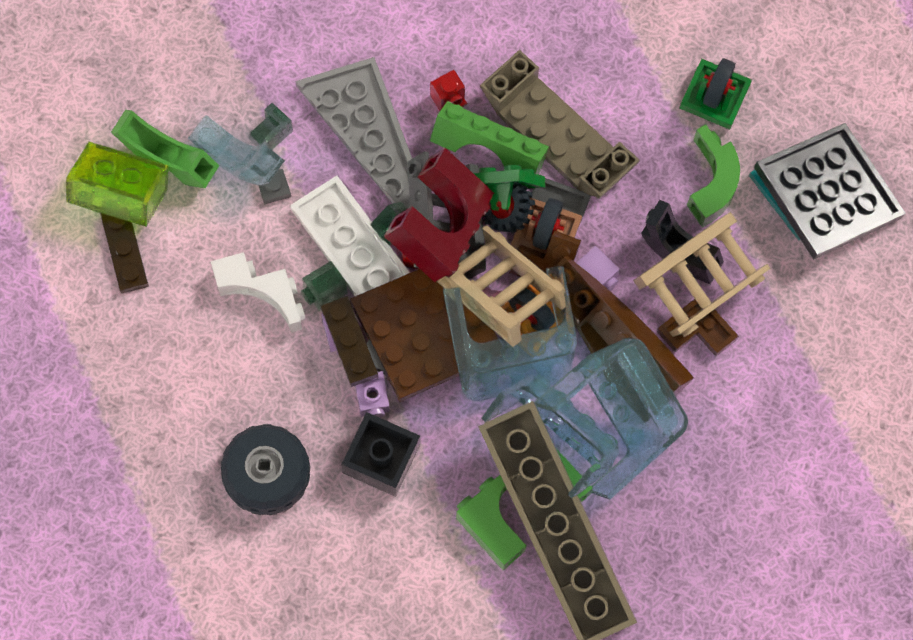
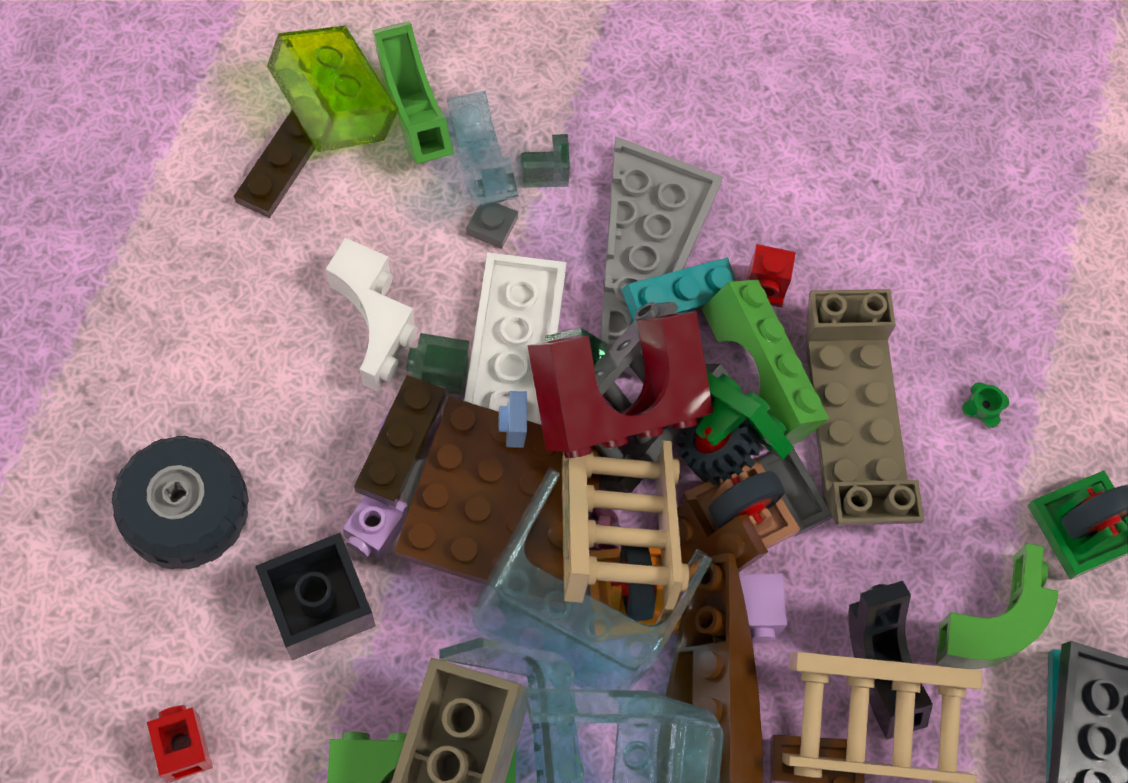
camera: 40 degrees right, 5 degrees down
(395, 576) = (164, 731): none -> red brick
(399, 280) = (514, 419): none -> light blue plate
(411, 139) = (687, 287): none -> teal plate
(618, 64) = (993, 396): none -> green plate

